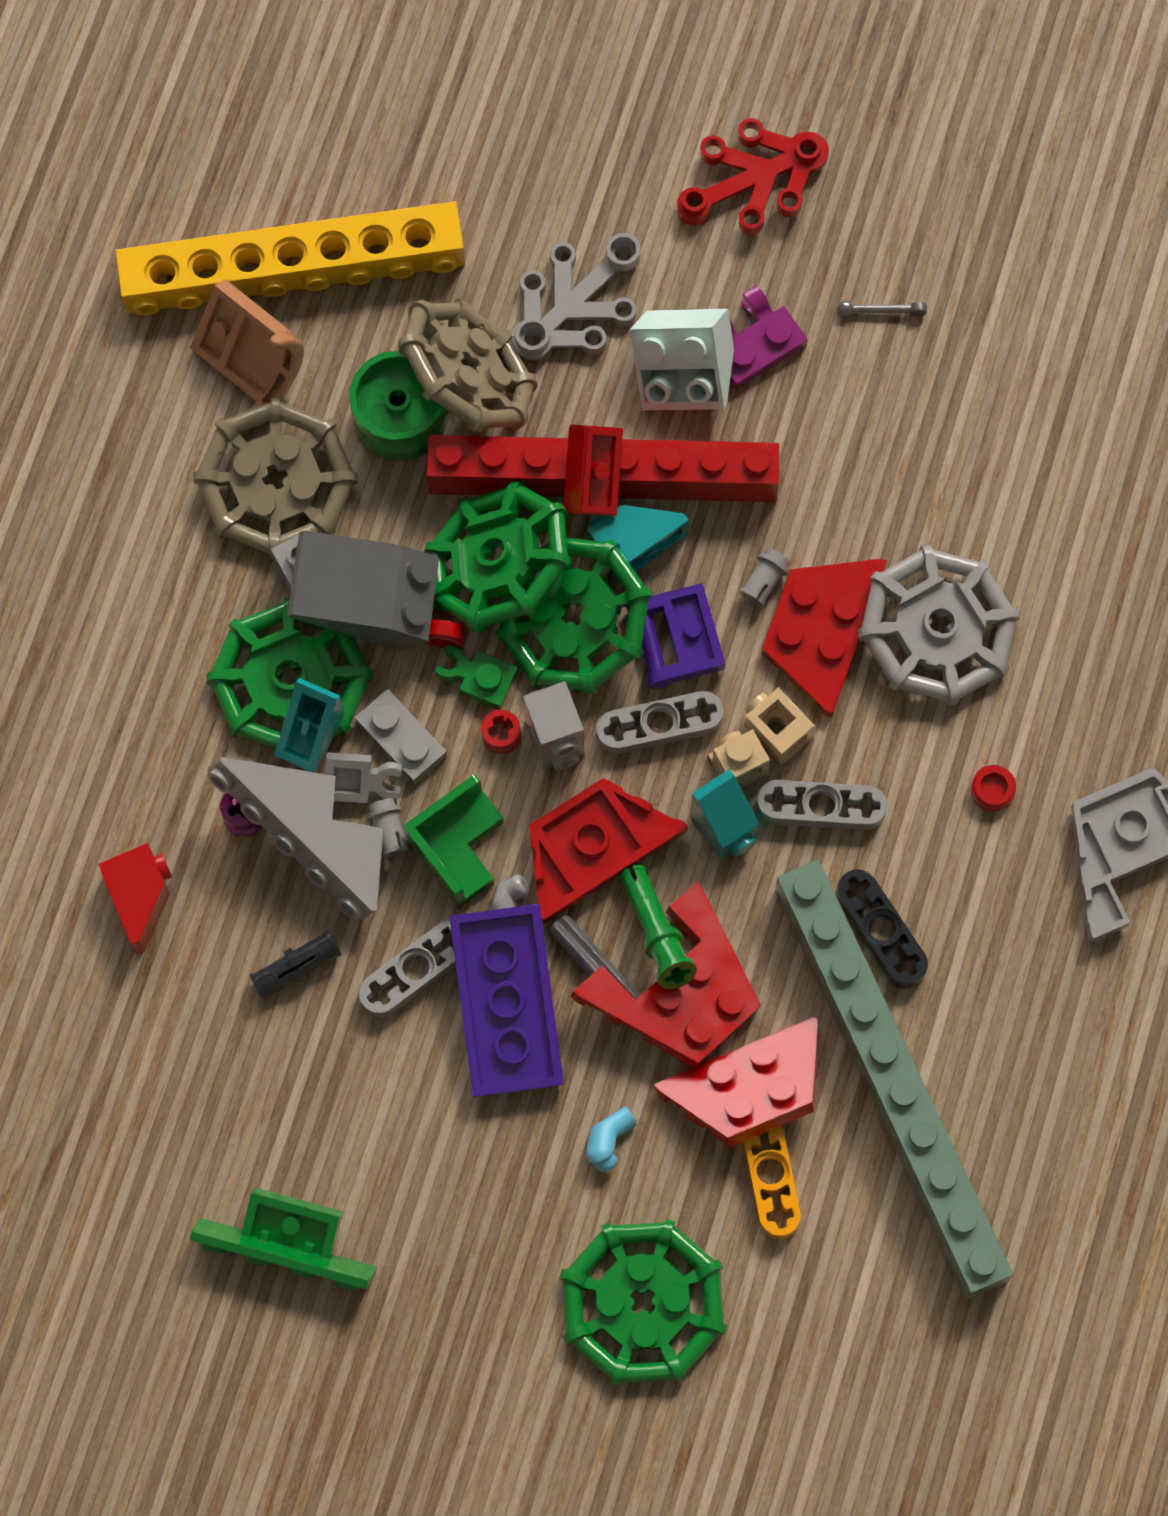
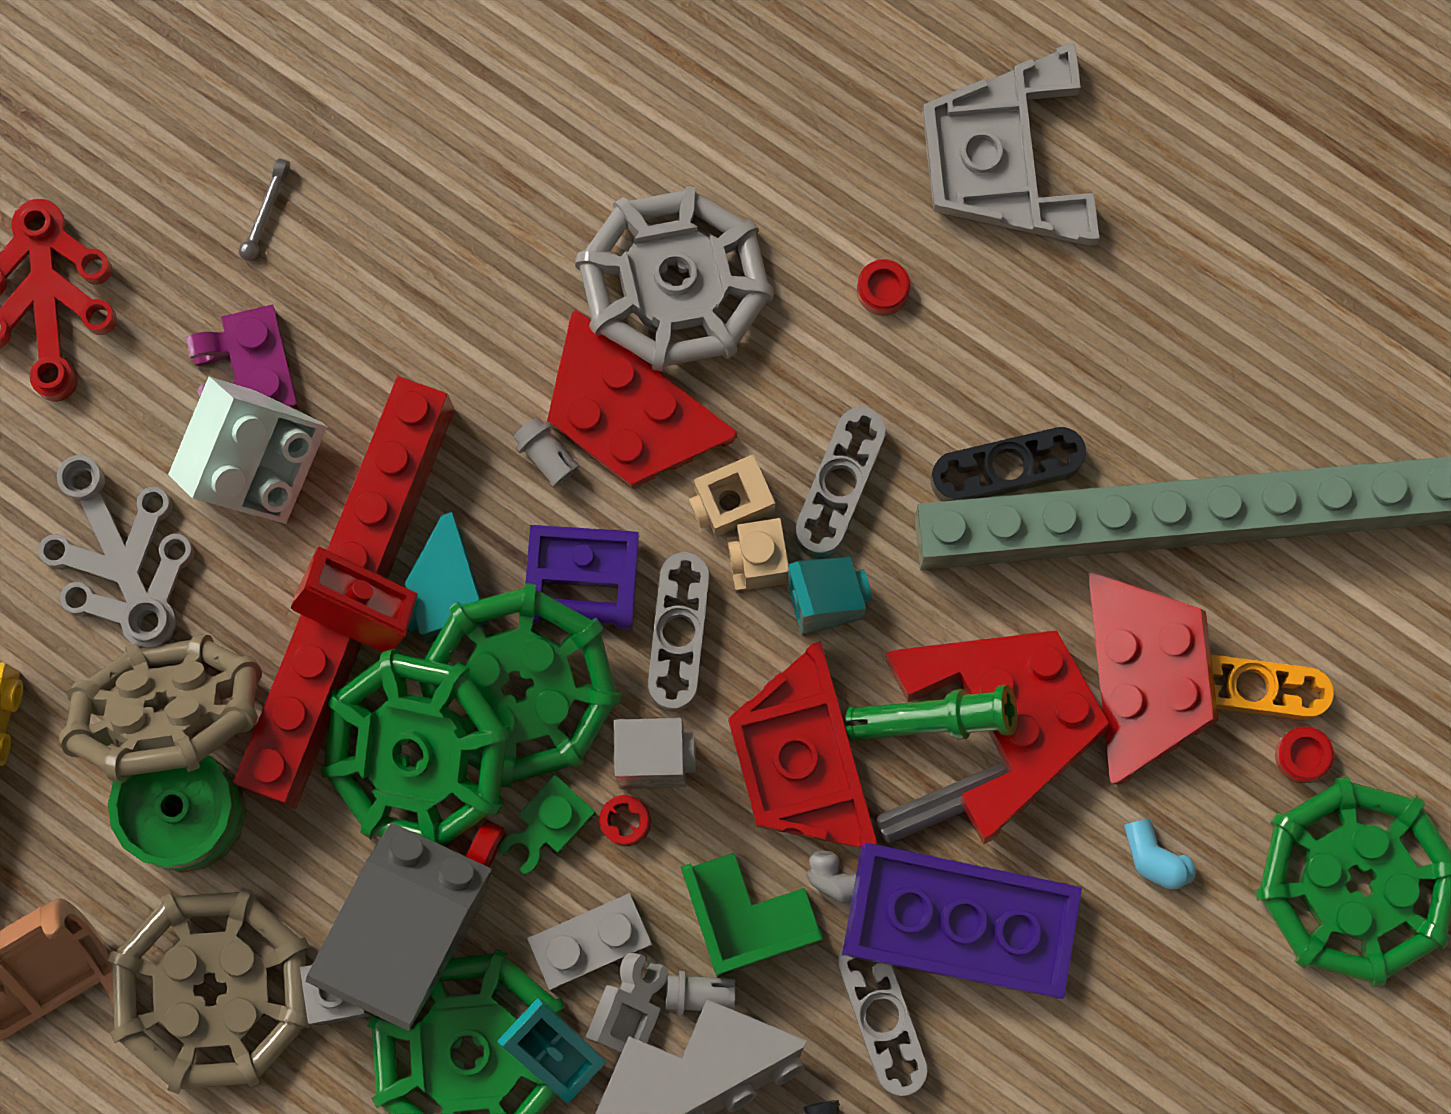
camera: 70 degrees left, 5 degrees up
(730, 1231) = (1304, 754): none -> red tile

